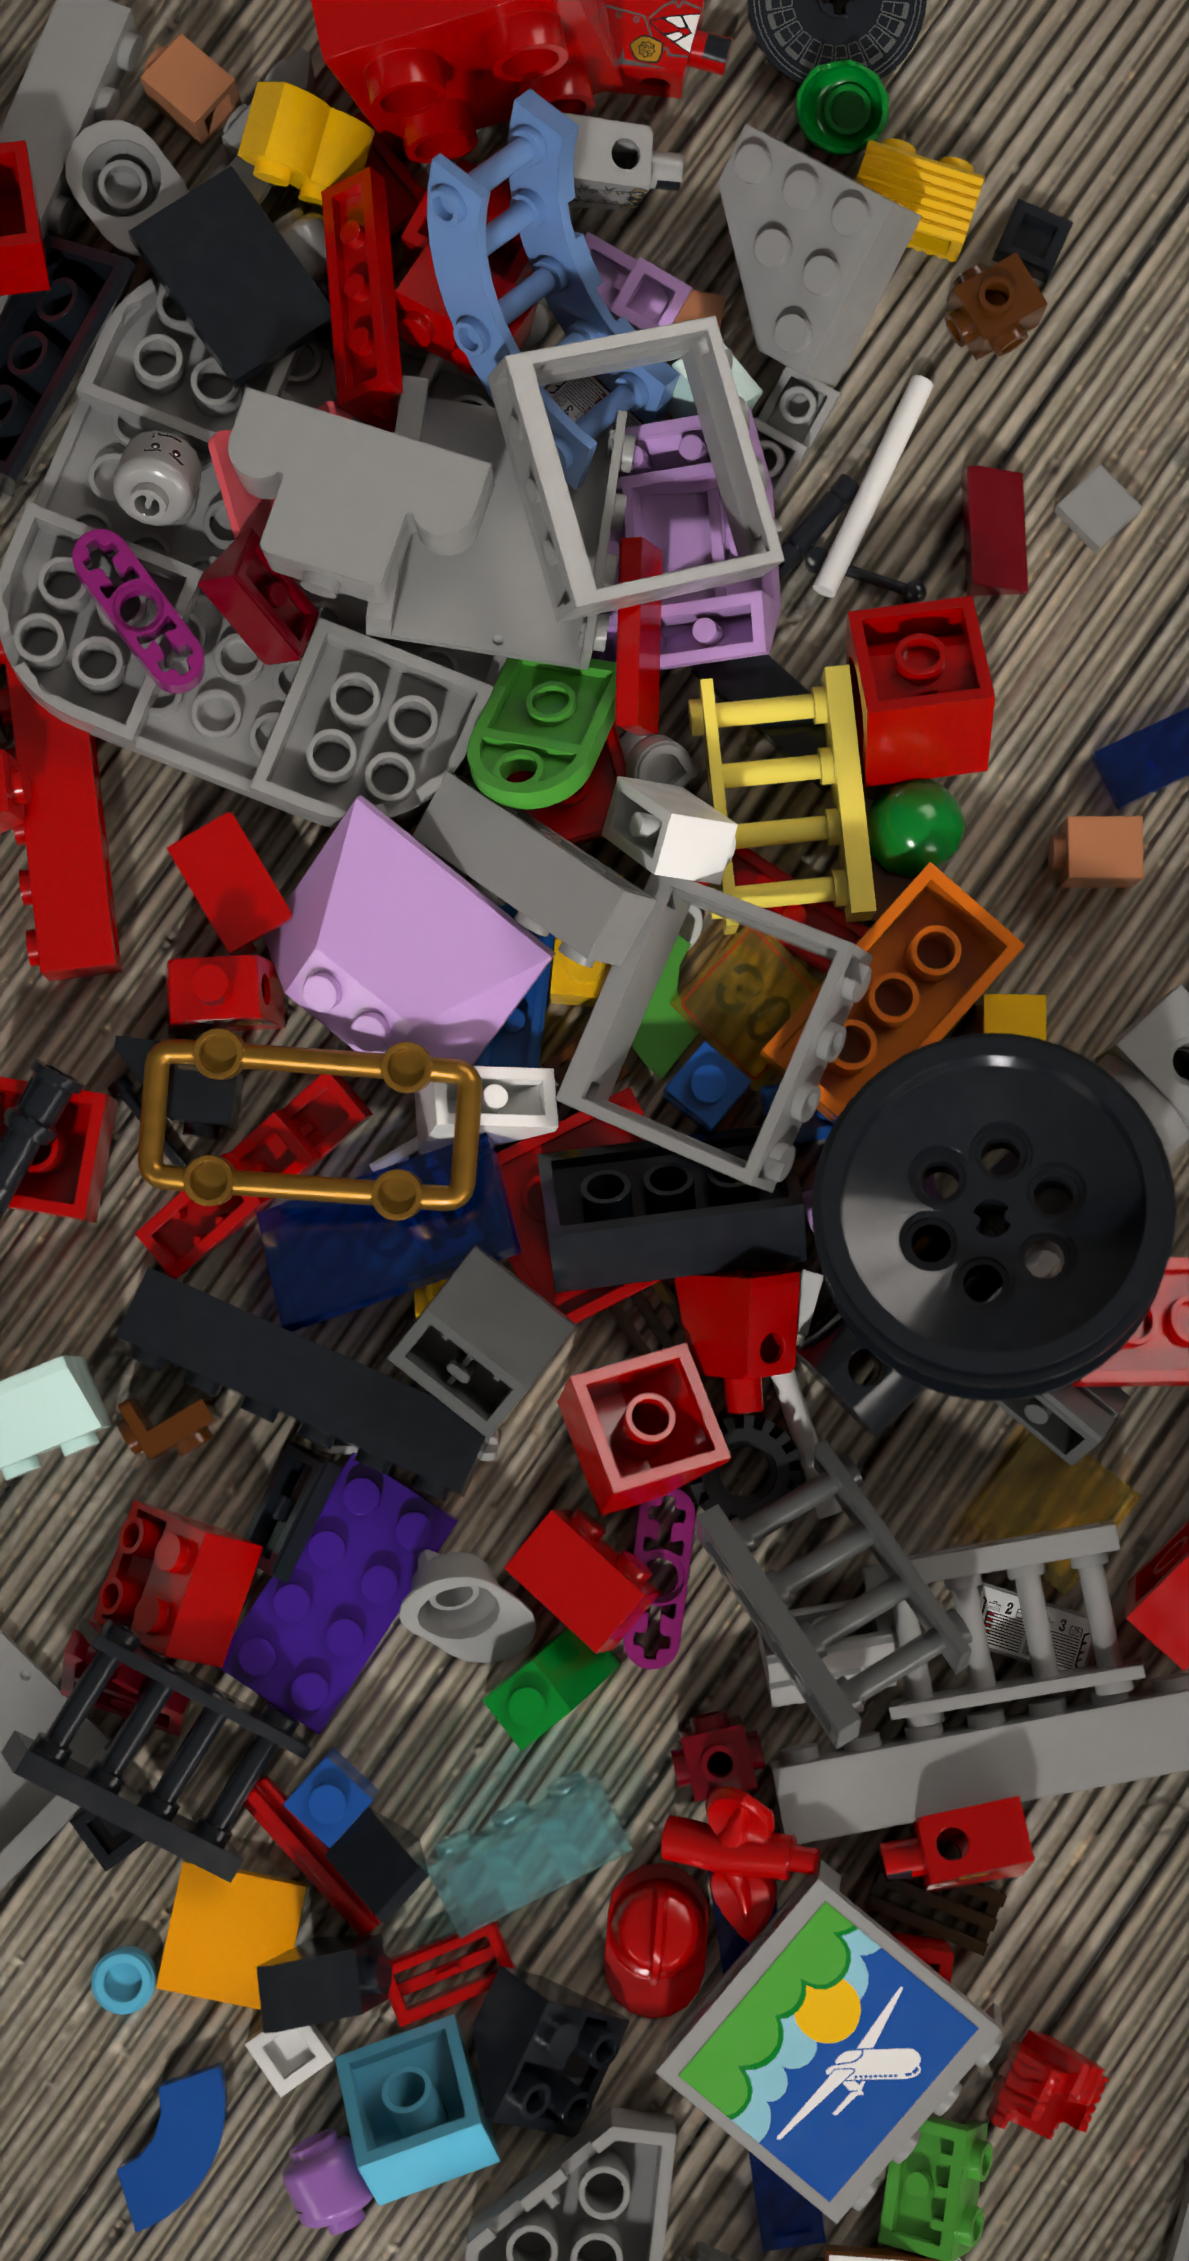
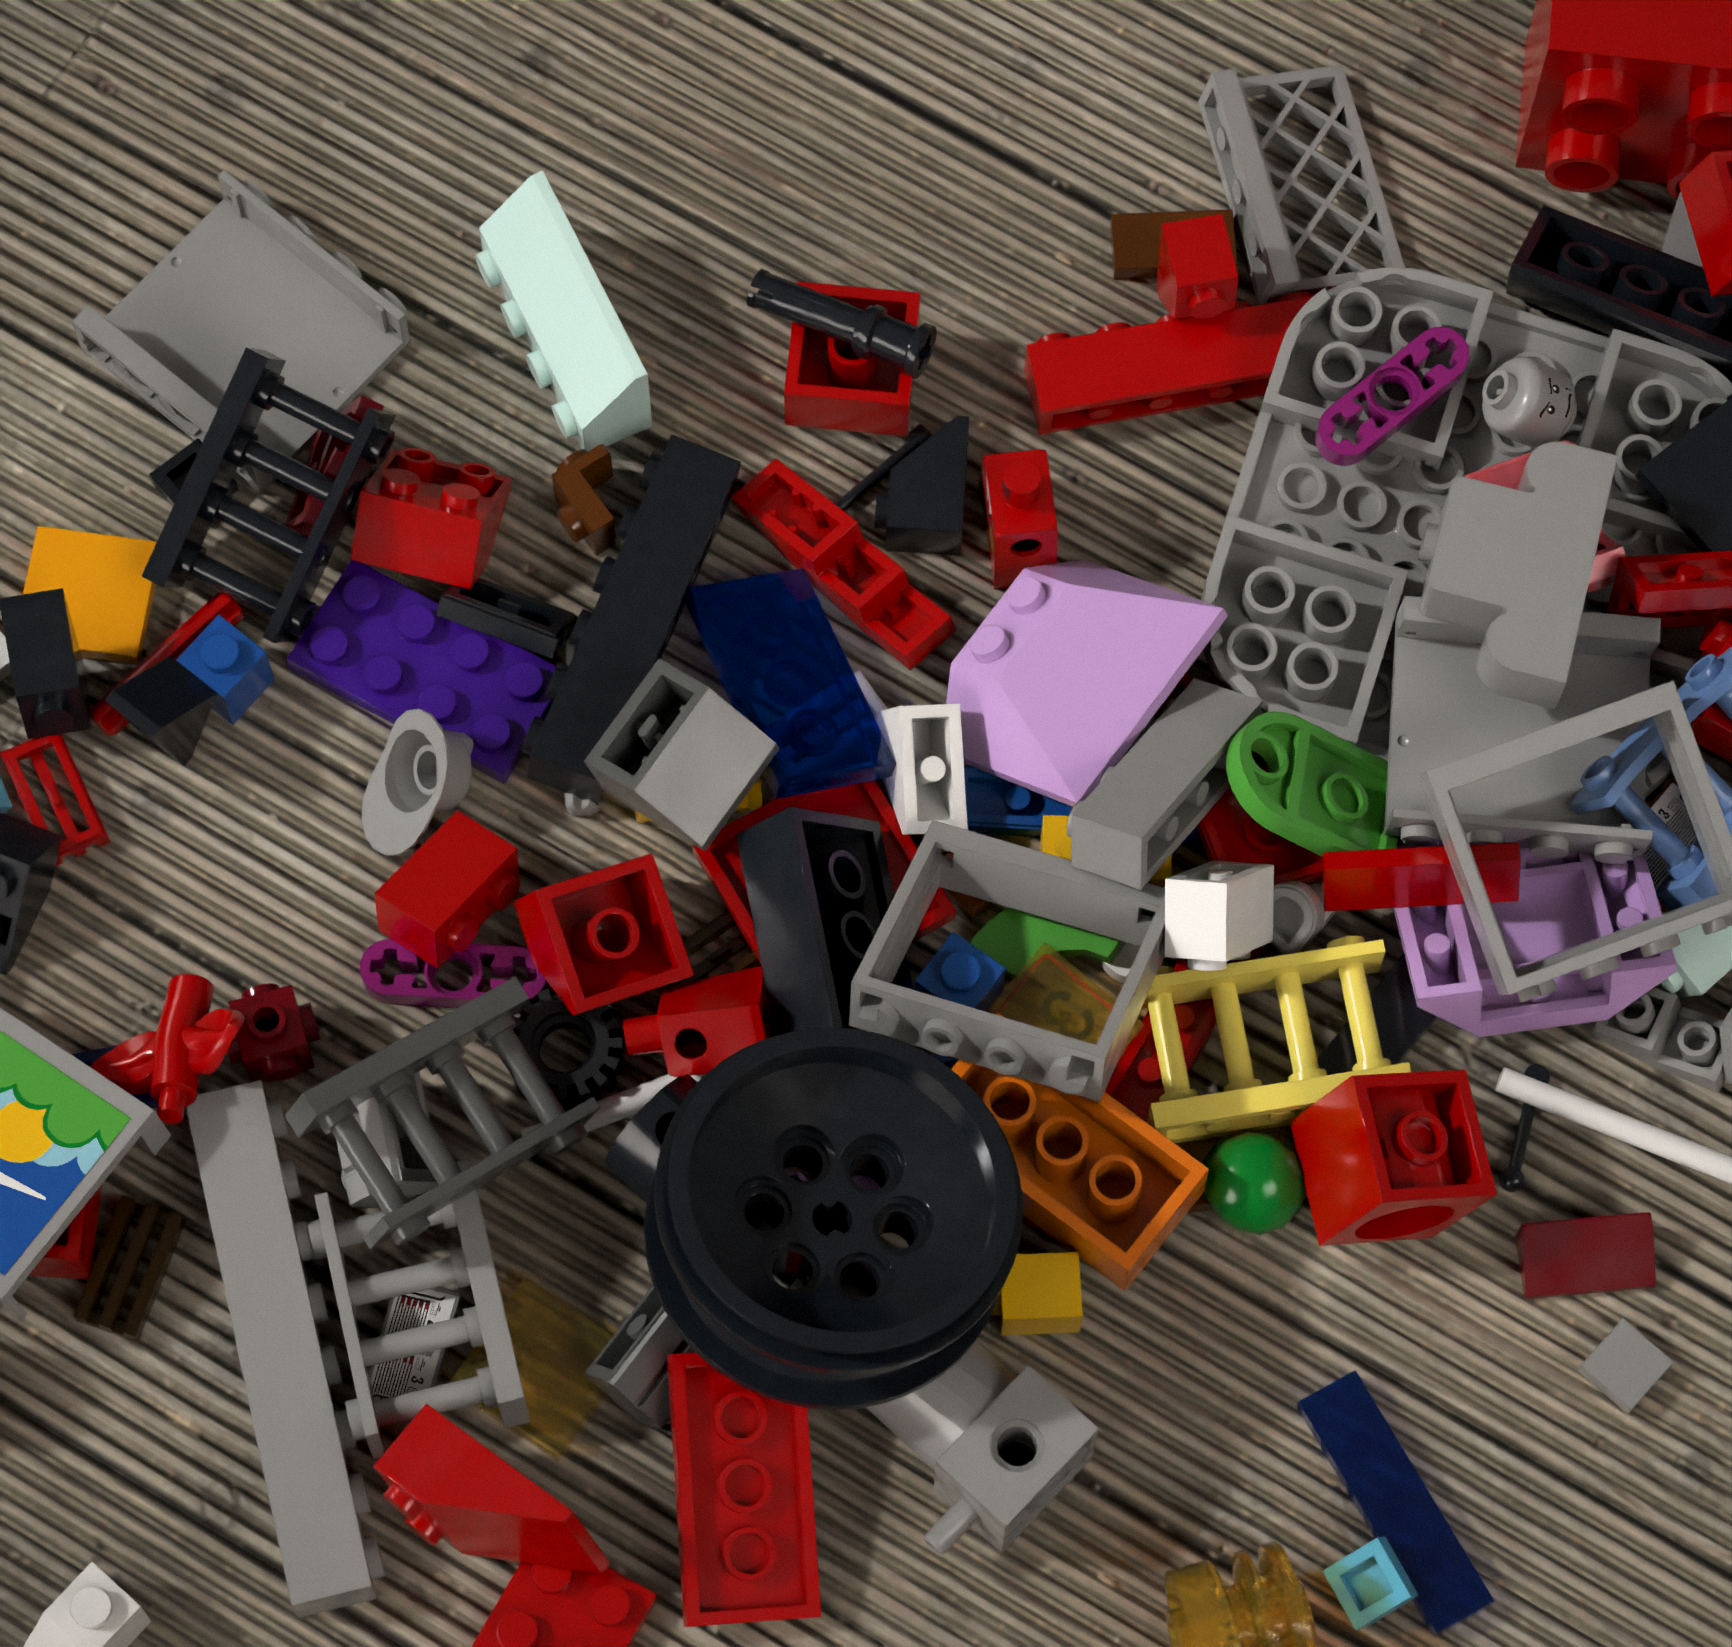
camera: 90 degrees right, 15 degrees down
(124, 1979) = (44, 499): medium azure tile -> none
(230, 883) = (1129, 514): red panel -> none
(258, 602) = (1408, 501): dark red slope -> none
(394, 1194) = (953, 668): pearl gold bar -> none
(527, 1852) = (175, 859): clear light blue brick -> none
(547, 1686) = (336, 865): green slope -> none
(656, 1940) = (87, 995): red piece -> none
(816, 522) = (1570, 1070): black wheel -> none
(989, 1839) = (186, 1274): red torso -> none
(1098, 852) = (1245, 1376): nougat brick -> none

